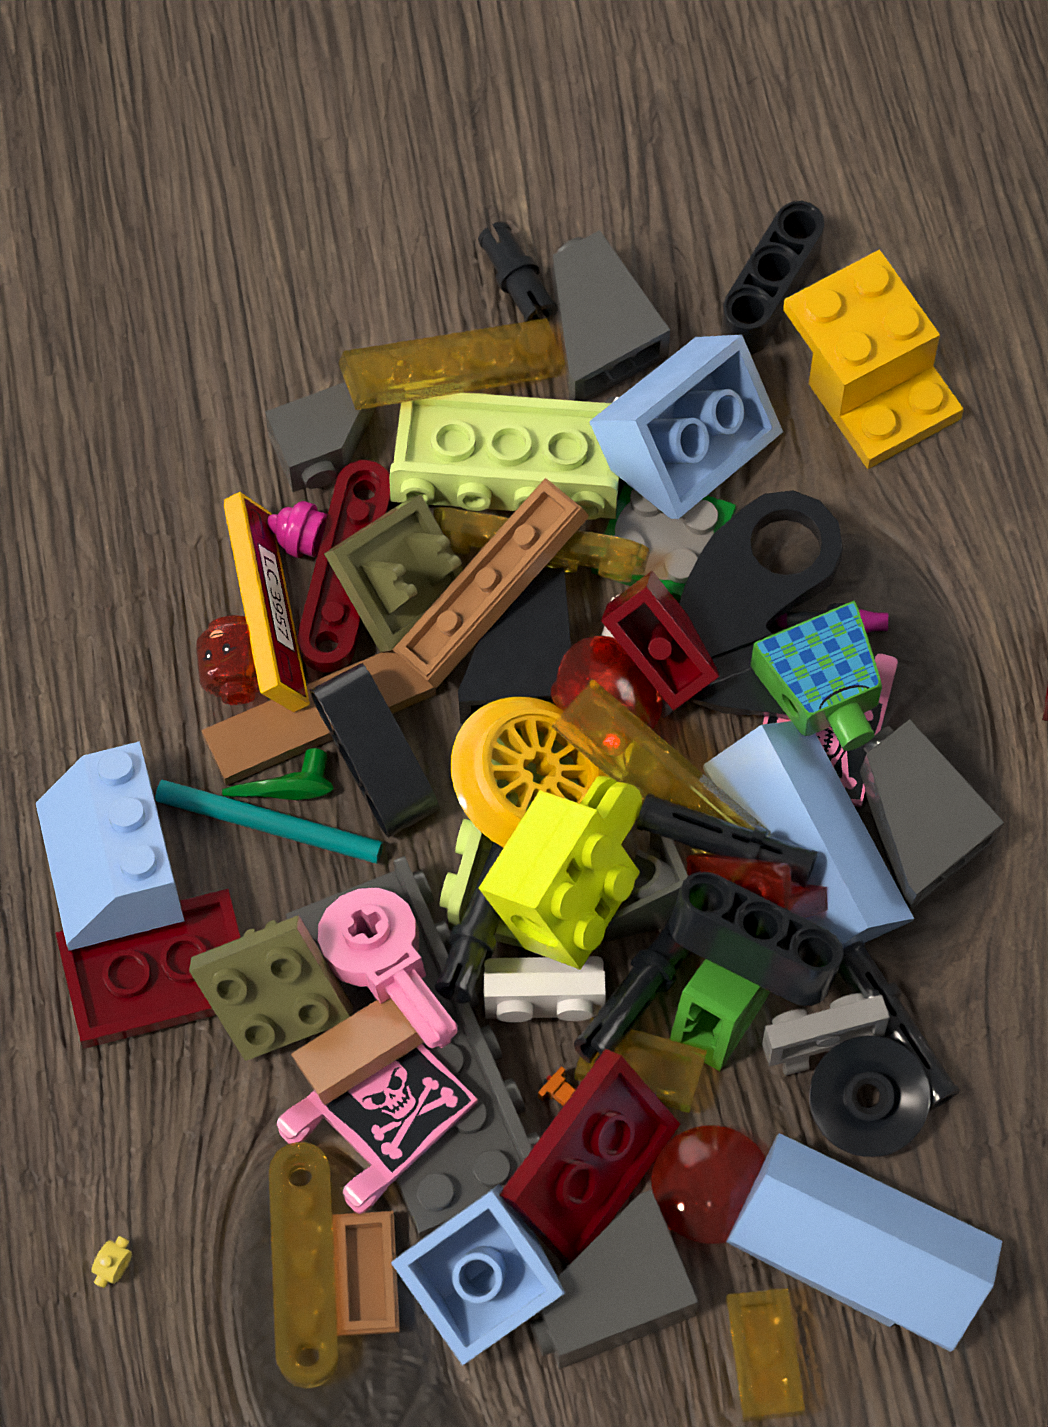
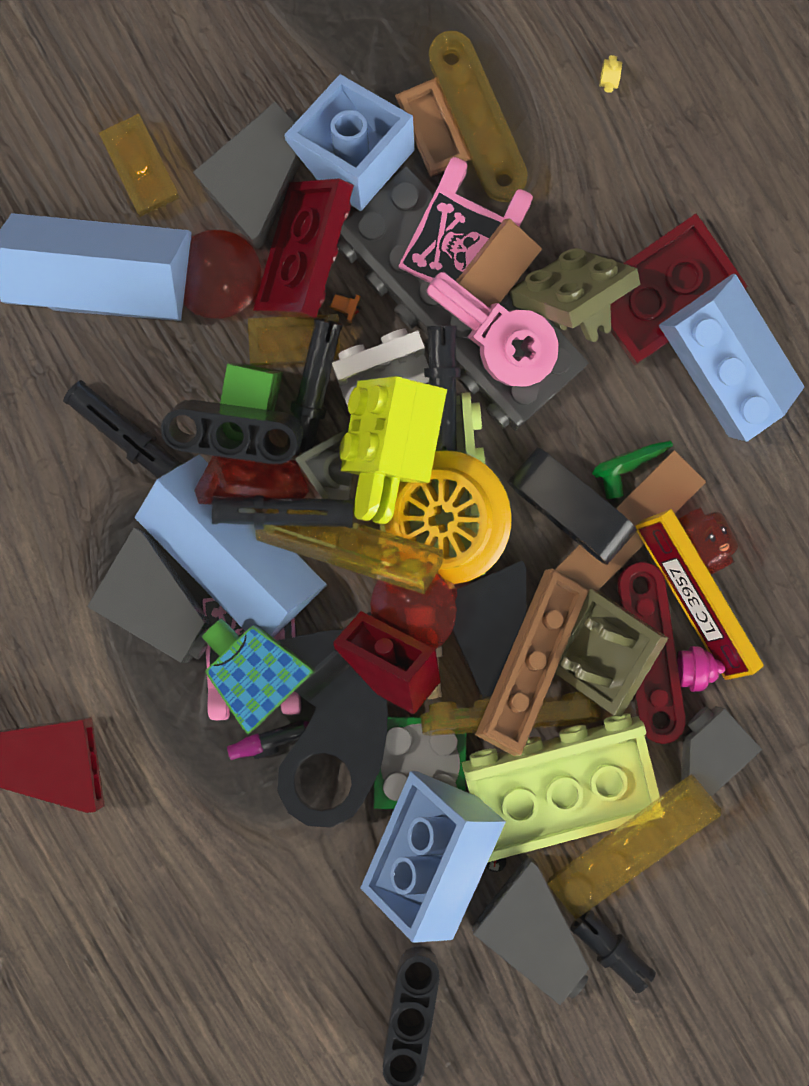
camera: 160 degrees right, 20 degrees up
(269, 821) = (629, 432): teal bar -> none
(800, 1035) = (151, 407): light grey plate -> none
(873, 359) = (307, 969): yellow bracket -> none
(901, 1100) = (112, 358): black dish -> none

